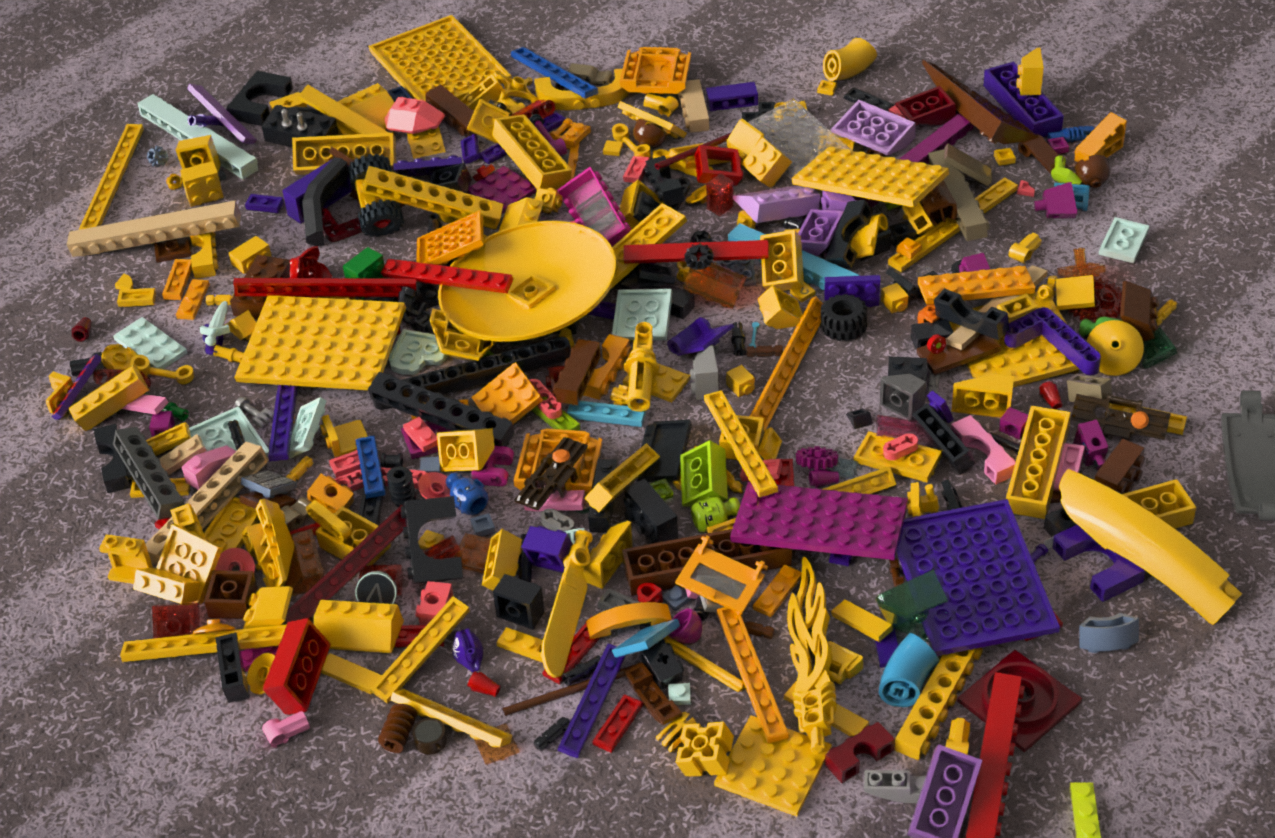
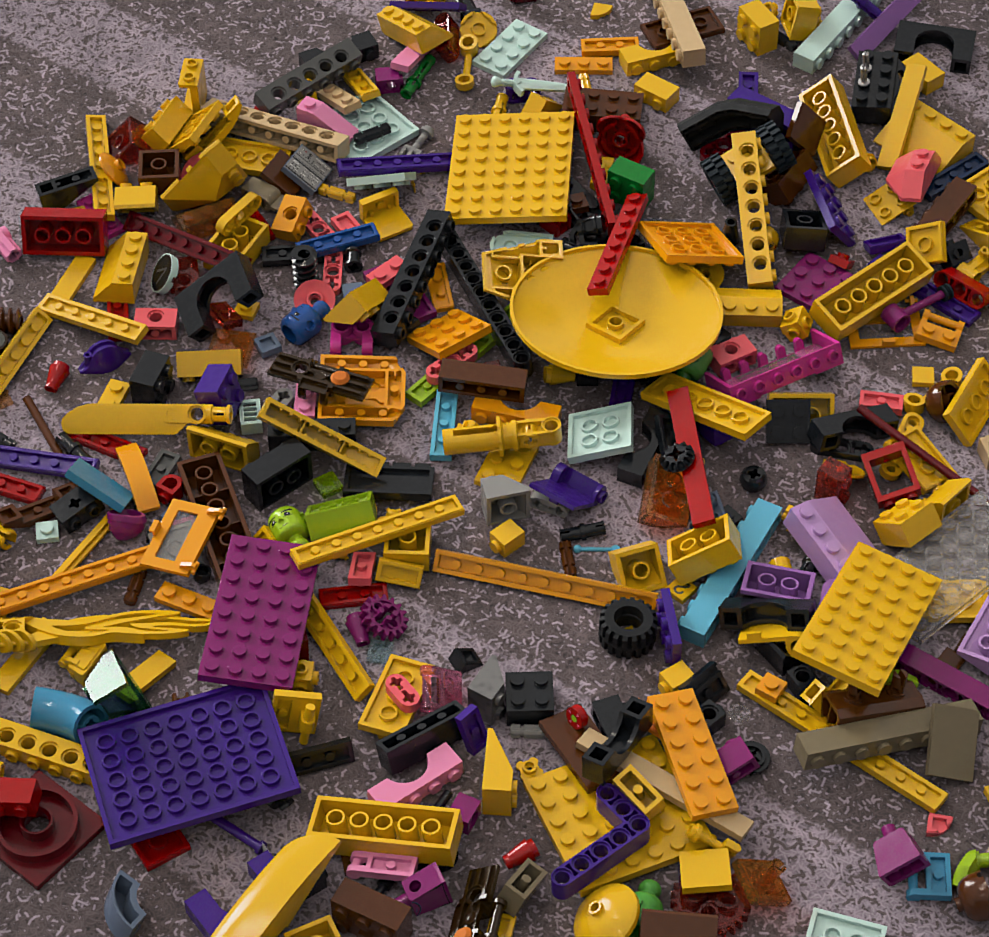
camera: 80 degrees right, 5 degrees up
(136, 297) = (576, 22): yellow plate -> none
(1023, 250) = (796, 818): yellow piece -> none

